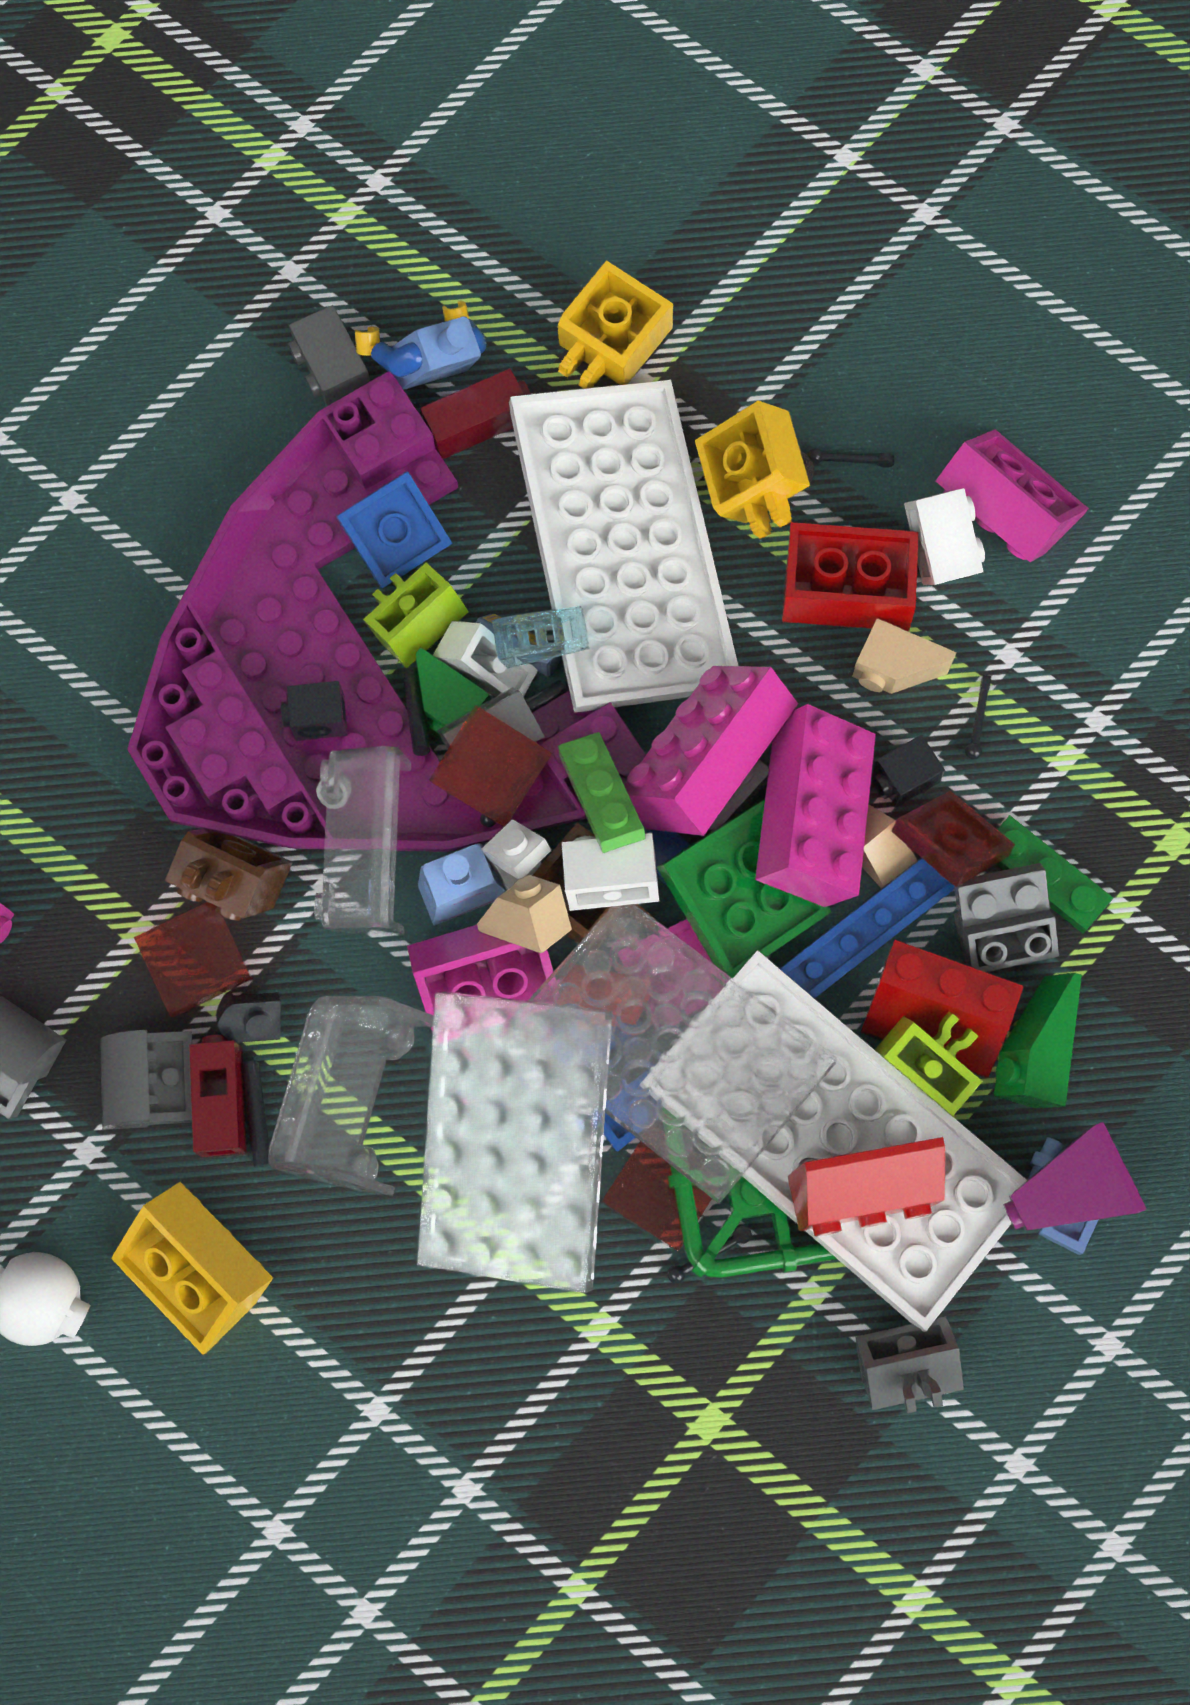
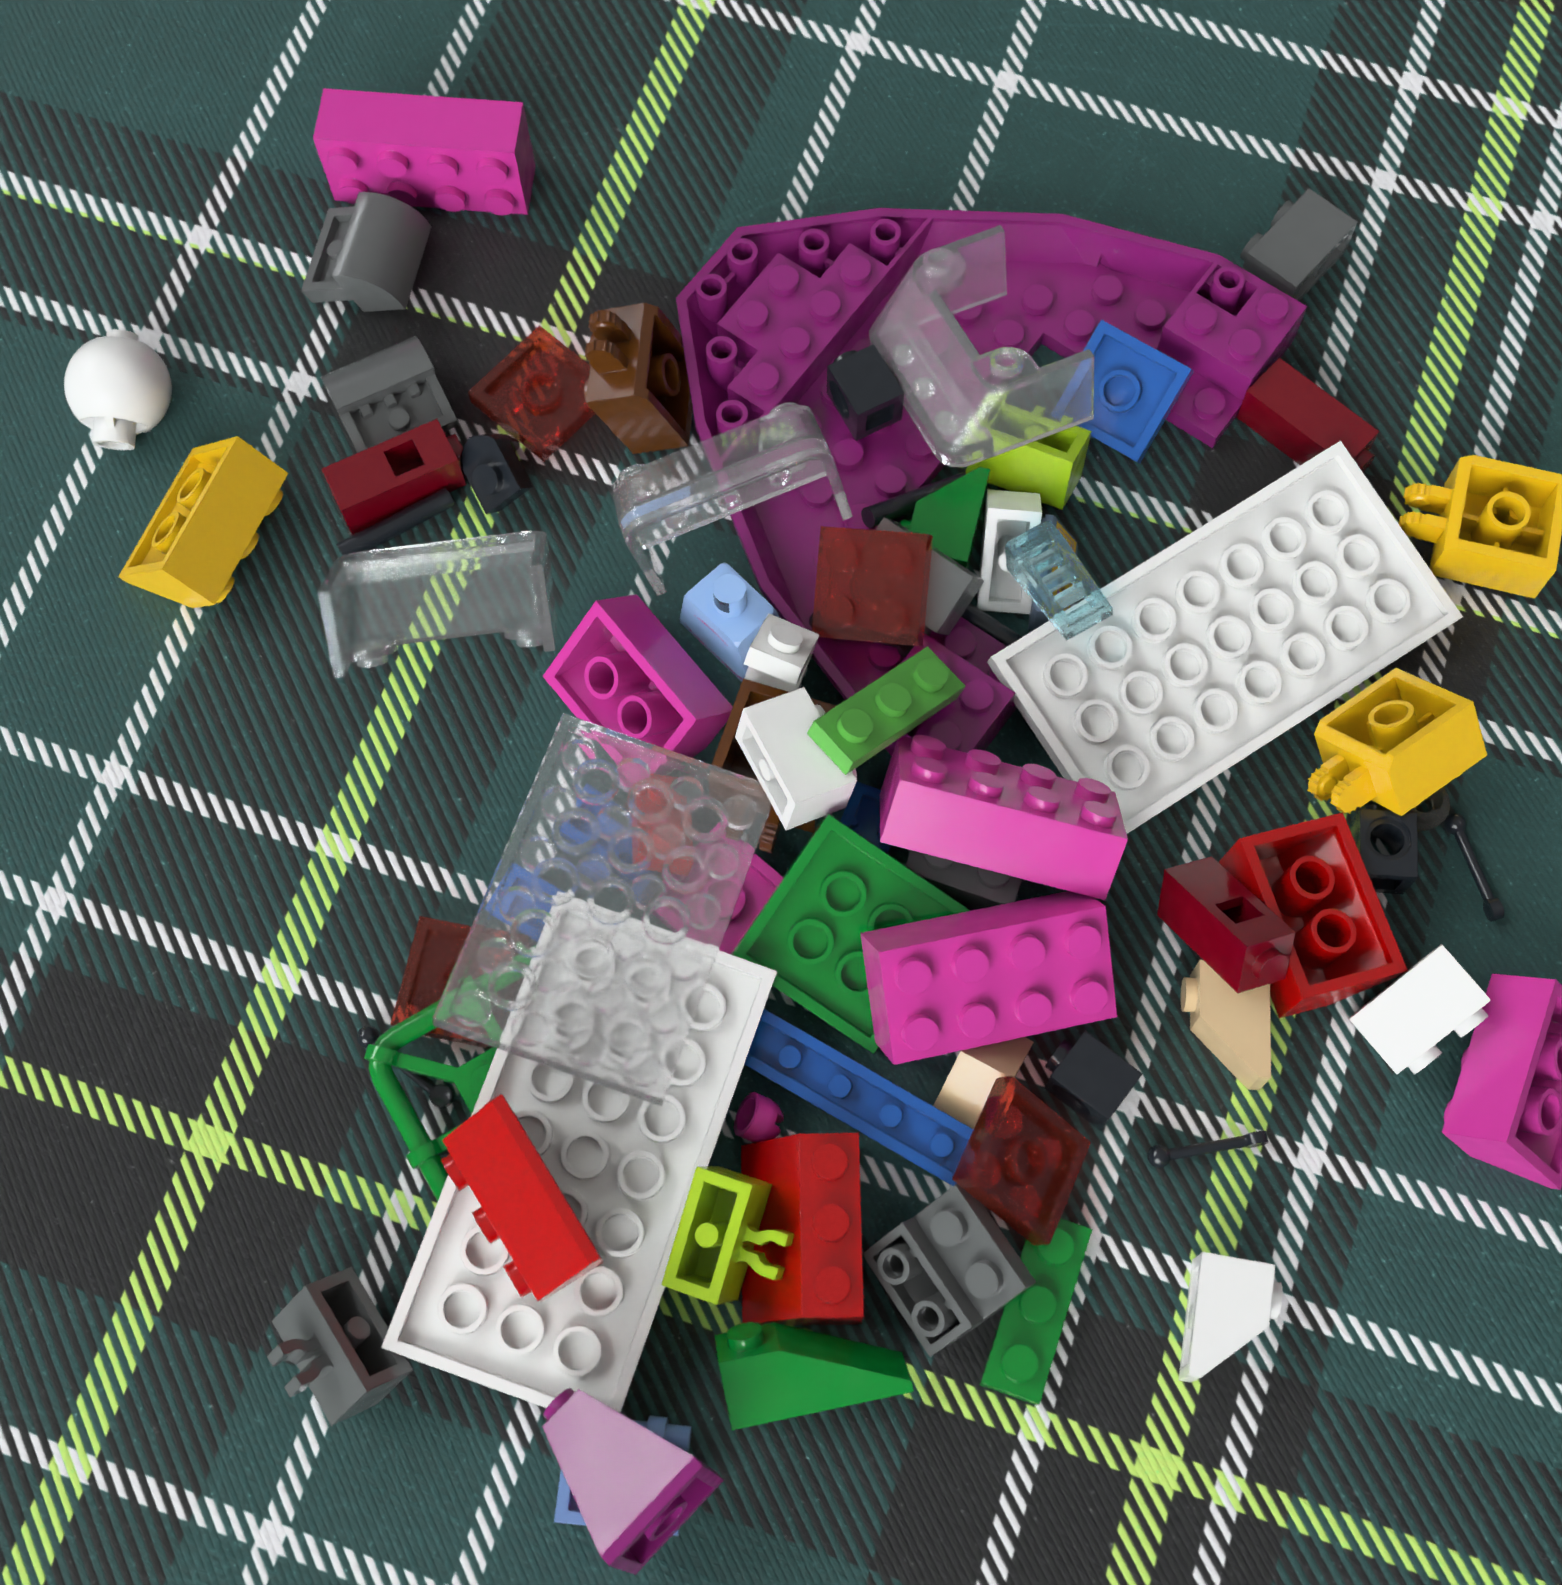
camera: 65 degrees right, 5 degrees down
(352, 646) = (966, 400): none -> clear windscreen
(429, 351) = (1356, 340): torso -> none
(515, 1140) = (442, 780): clear plate -> none
(528, 914) = (709, 692): tan slope -> none
(832, 500) = (1394, 872): none -> black brick
(840, 634) = (1225, 924): none -> dark red brick
(856, 1006) = (758, 1118): none -> dark pink hinge
(1097, 754) = (1225, 1310): none -> white slope

